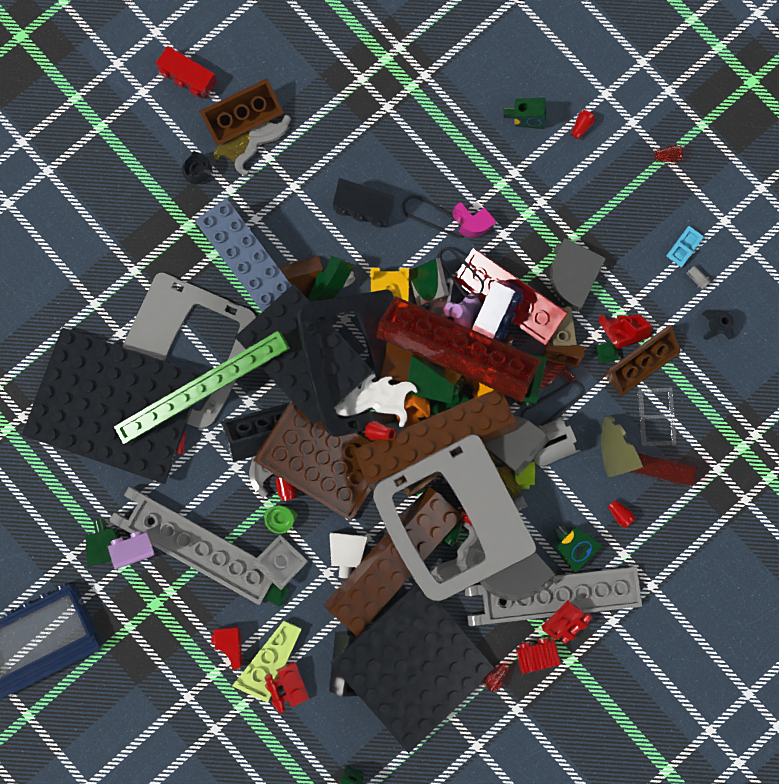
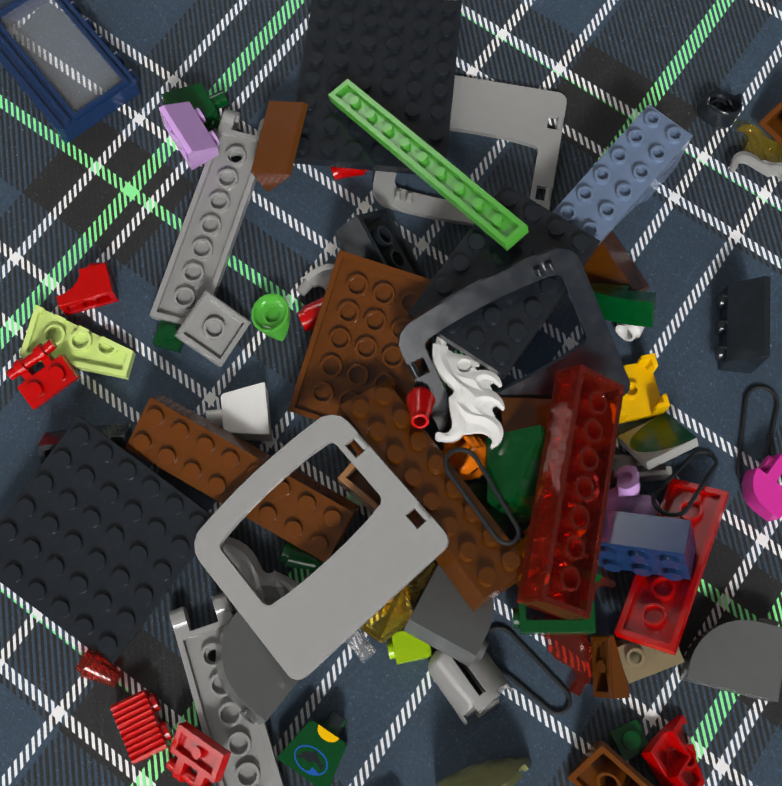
camera: 80 degrees right, 10 degrees down
(151, 486) = (278, 142): none -> reddish brown slope
(452, 414) = (470, 502): none -> black piece

